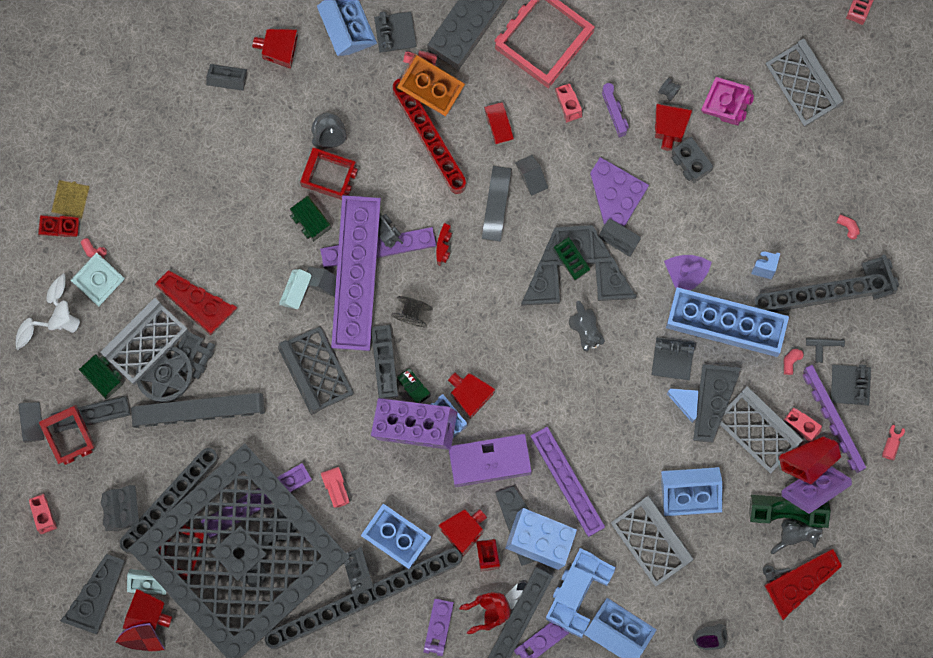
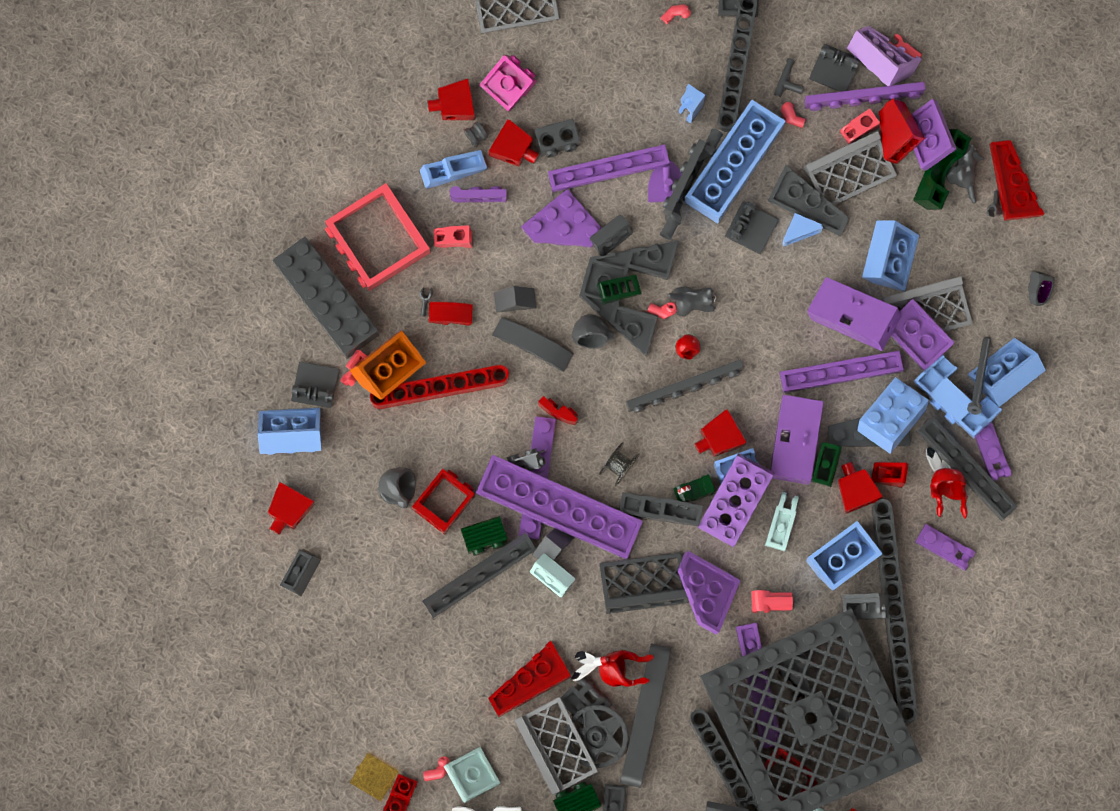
camera: 75 degrees left, 0 degrees up
(228, 366) = (611, 667): none -> red hair
(273, 226) = (479, 575): none -> dark grey plate
(325, 426) = (708, 590): none -> medium lavender plate
(409, 473) = (781, 524): none -> light aqua hinge
(475, 494) = (826, 464): none -> dark green brick
(505, 97) = (424, 300): none -> dark grey hand
(509, 353) = (676, 390): none -> dark grey plate
(524, 249) = (591, 332): none -> dark grey piece
(541, 337) = (687, 346): none -> red piece
(566, 305) = (664, 311): none -> coral arm
(572, 609) = (975, 407): none -> dark grey bar
(622, 473) = (854, 313): none -> medium lavender brick
(625, 539) = (920, 335): none -> medium lavender plate
(630, 81) = (452, 168): none -> light blue slope
(681, 214) = (608, 168): none -> medium lavender plate
(692, 60) = (454, 101): none -> red torso
(700, 283) = (681, 186): none -> dark grey plate
(875, 423) = (882, 57): none -> lavender wedge

